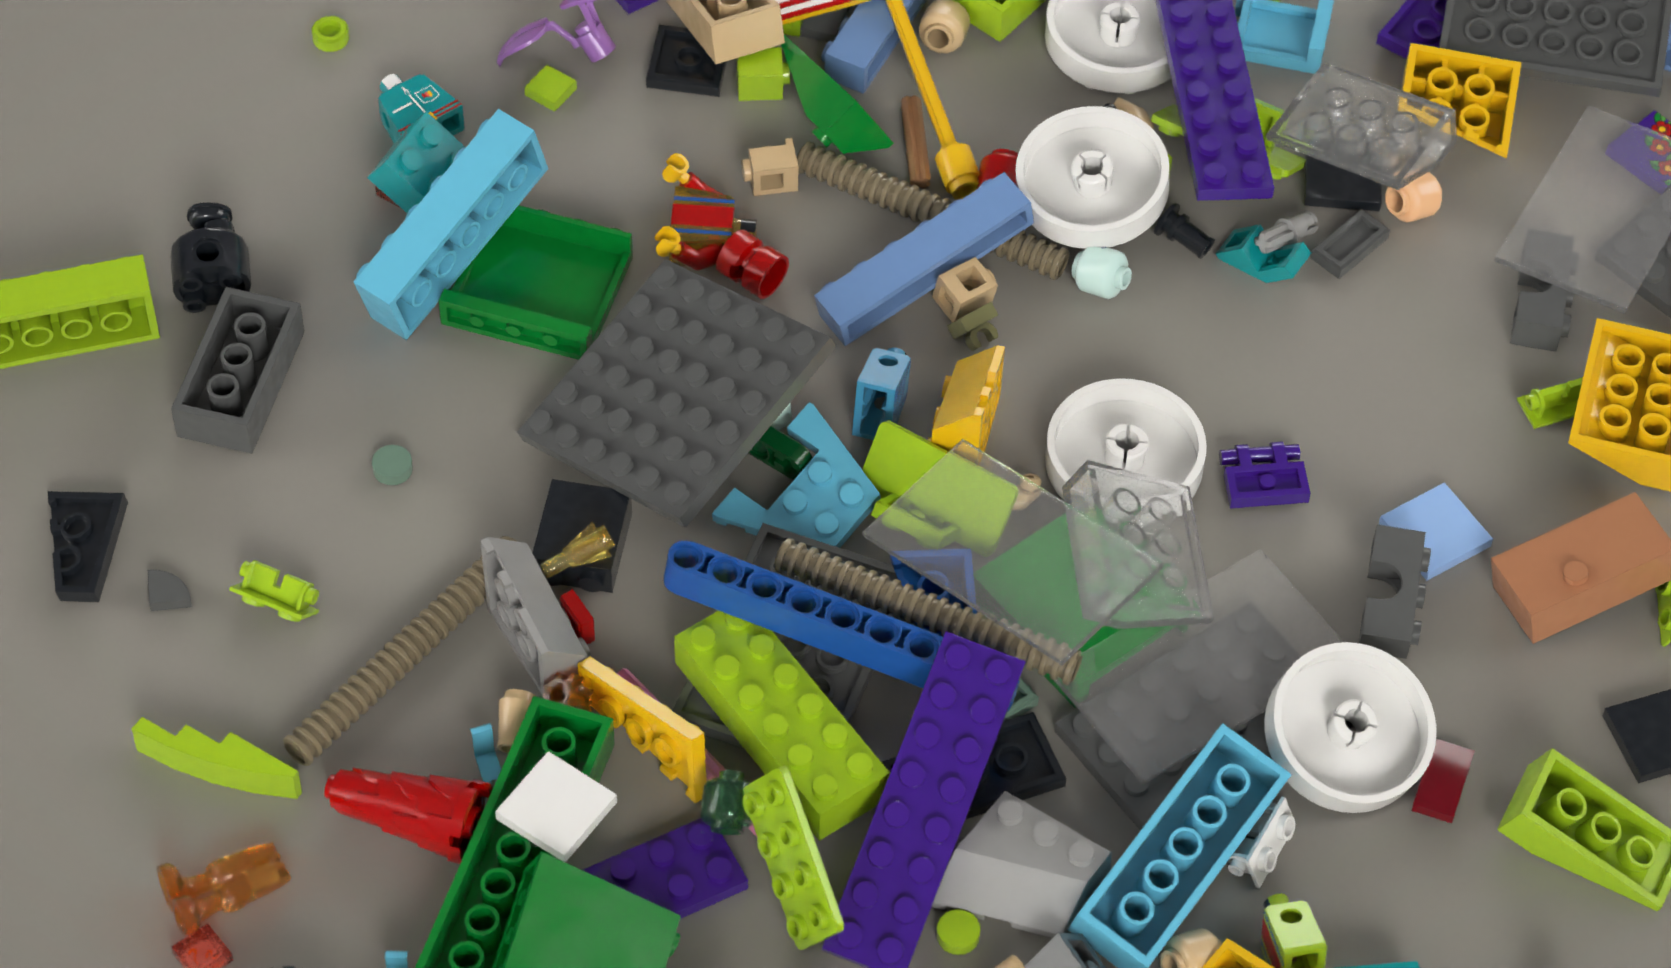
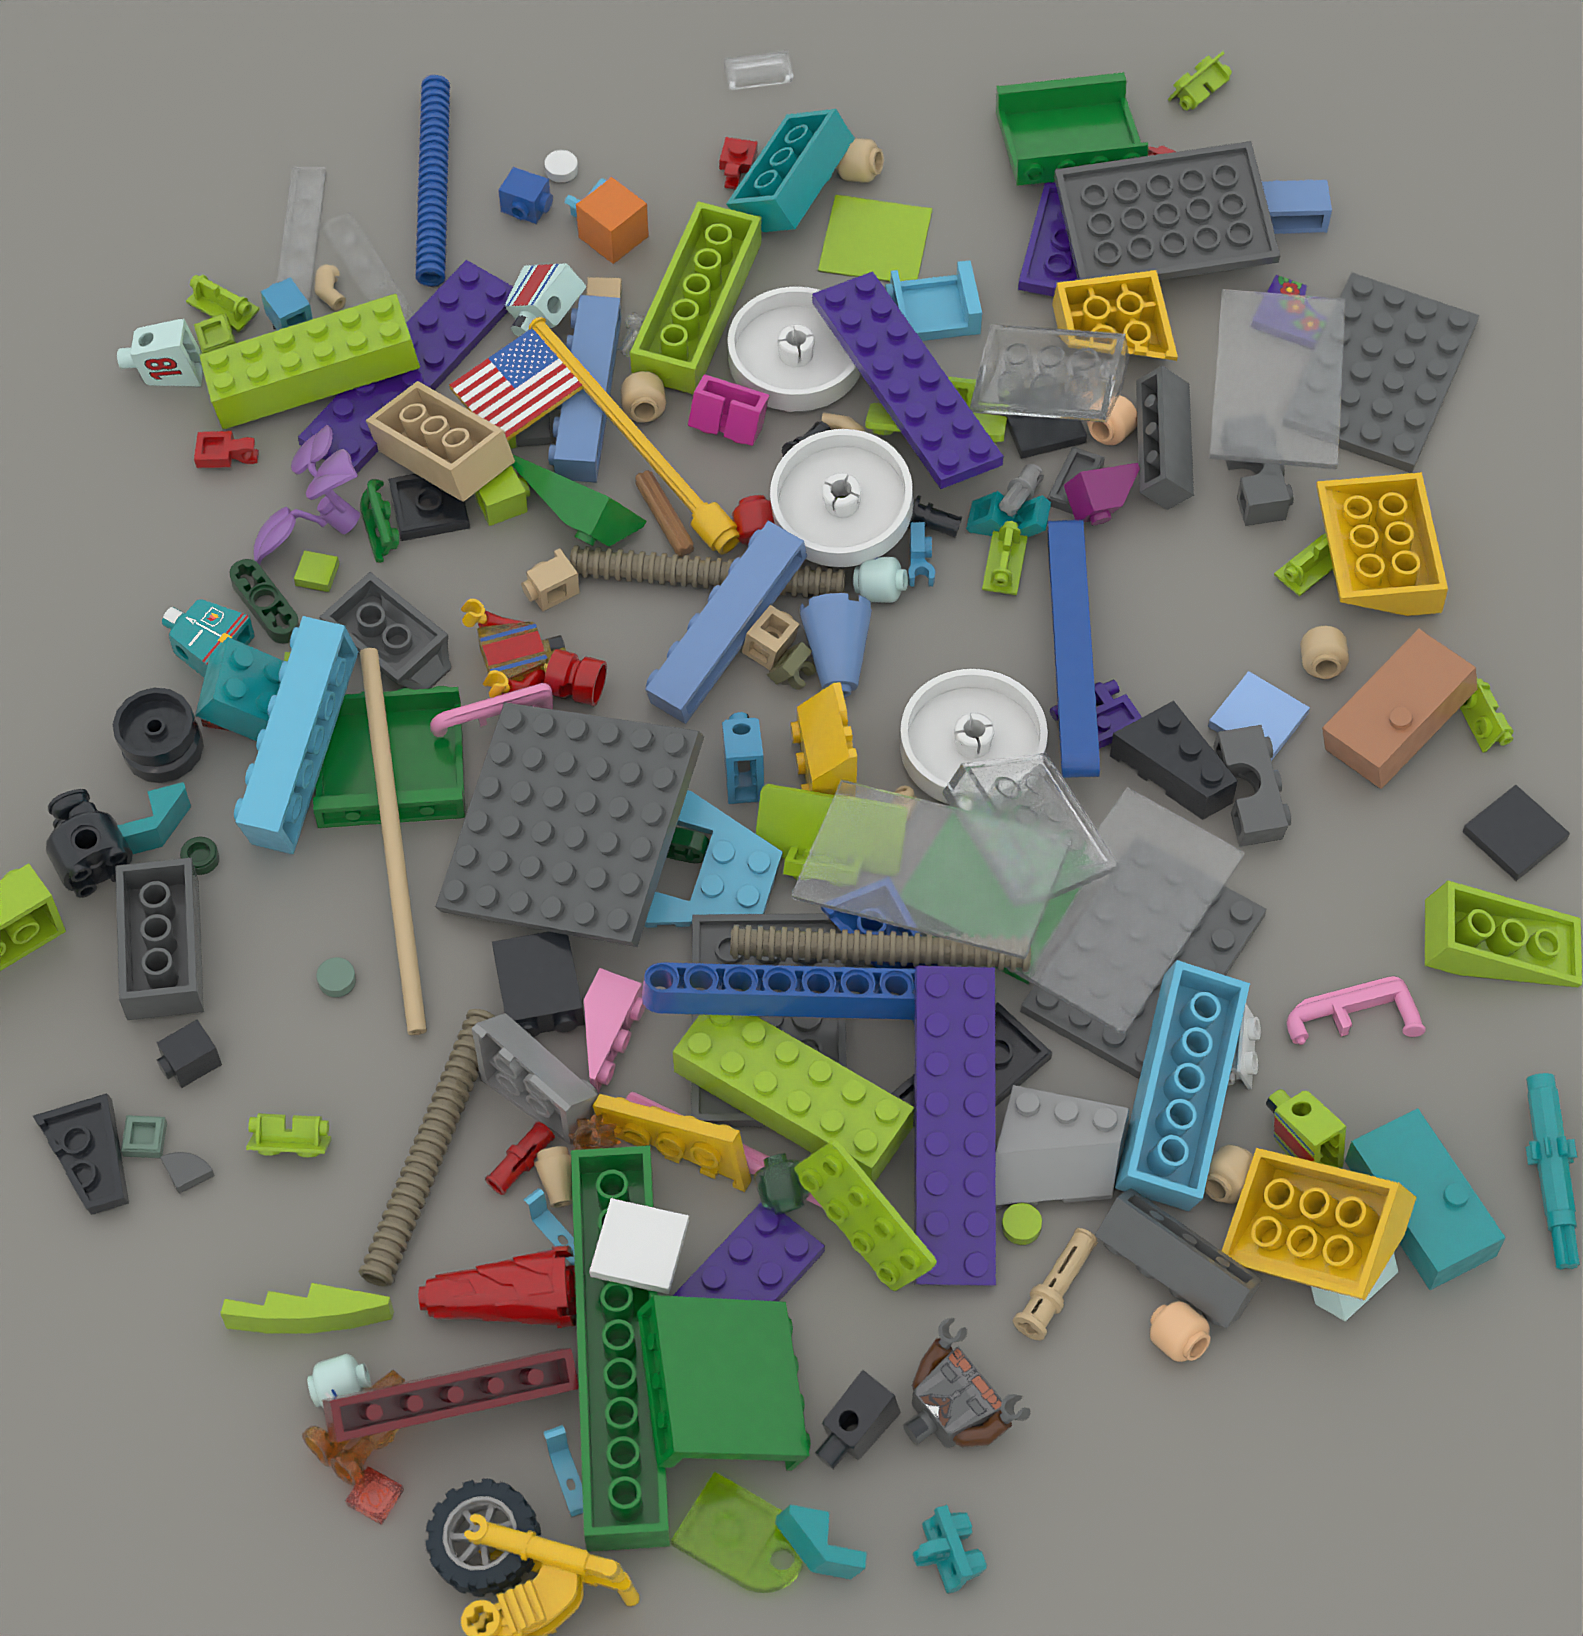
camera: 20 degrees left, 5 degrees up
(142, 547) = (144, 1136): none -> sand green tile
(214, 835) = (336, 1378): none -> light aqua head
(216, 485) = (187, 1054): none -> black brick
(304, 258) = (168, 808): none -> teal slope
(310, 879) = (450, 1394): none -> dark red brick
(317, 310) = (203, 854): none -> dark green tile
(325, 185) = (158, 735): none -> black wheel
(330, 33) = (90, 586): lime tile -> none
(462, 704) = (520, 1158): none -> red pin
(492, 86) = (262, 587): none -> dark green beam
(499, 356) = (393, 843): none -> tan piece
(579, 616) = (570, 1058): red tile -> none
(587, 547) = (555, 995): clear yellow cone -> none
(592, 166) = (407, 642): none -> dark grey slope
(630, 598) = (609, 1013): none -> bright pink slope
(631, 54) = (378, 518): none -> green piece
(648, 262) = (537, 696): none -> bright pink piece
(1022, 62) = (728, 409): none -> dark pink piece
(1030, 310) = (837, 637): none -> medium blue cone
(1154, 256) = (919, 550): none -> dark azure plate
(1240, 295) = (1005, 560): none -> lime hinge
(1265, 399) = (1073, 650): none -> blue beam
(1313, 743) = (1253, 949): white piece -> none
(1326, 540) = (1176, 758): none -> black wedge
(1366, 258) = (1100, 492): none -> magenta slope
(1405, 838) = (1353, 999): none -> bright pink piece
(1443, 781) = (1362, 938): dark red slope -> none
(1459, 229) = (1164, 438): none -> dark grey brick
(1532, 489) = (1324, 652): none -> tan head

